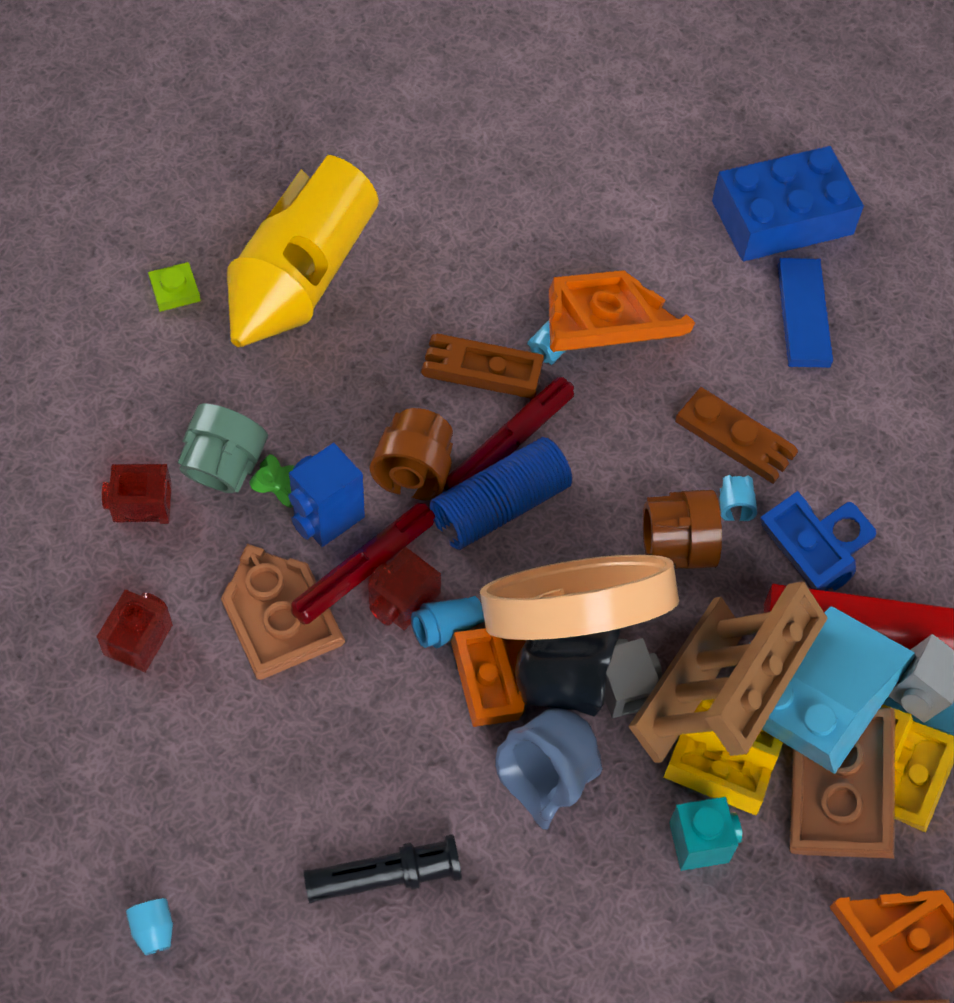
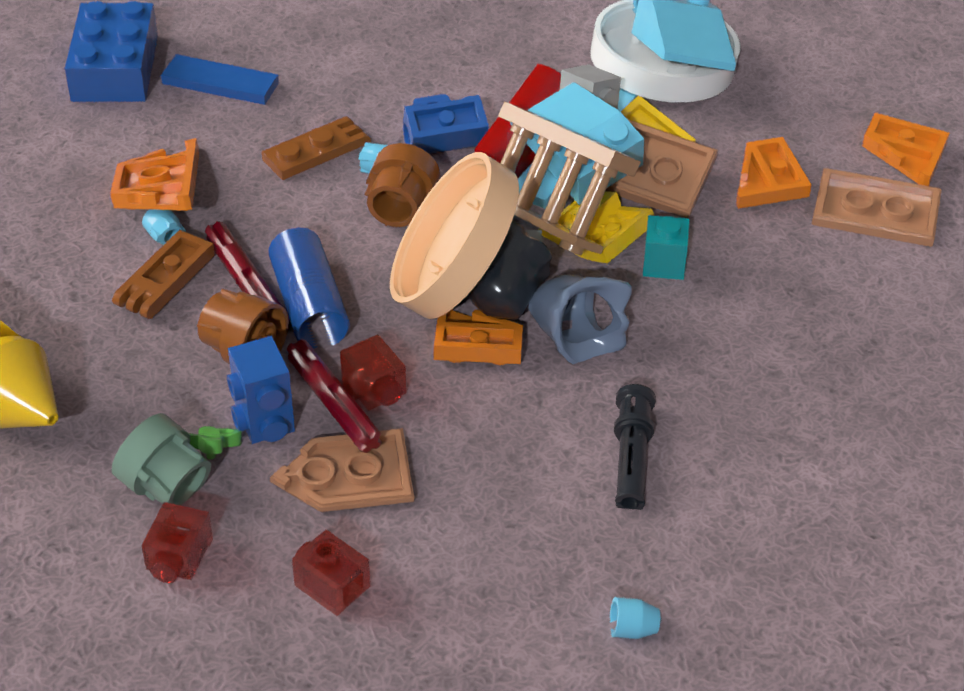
camera: 70 degrees left, 15 degrees down
(439, 620) = (414, 348): dark azure cone -> none

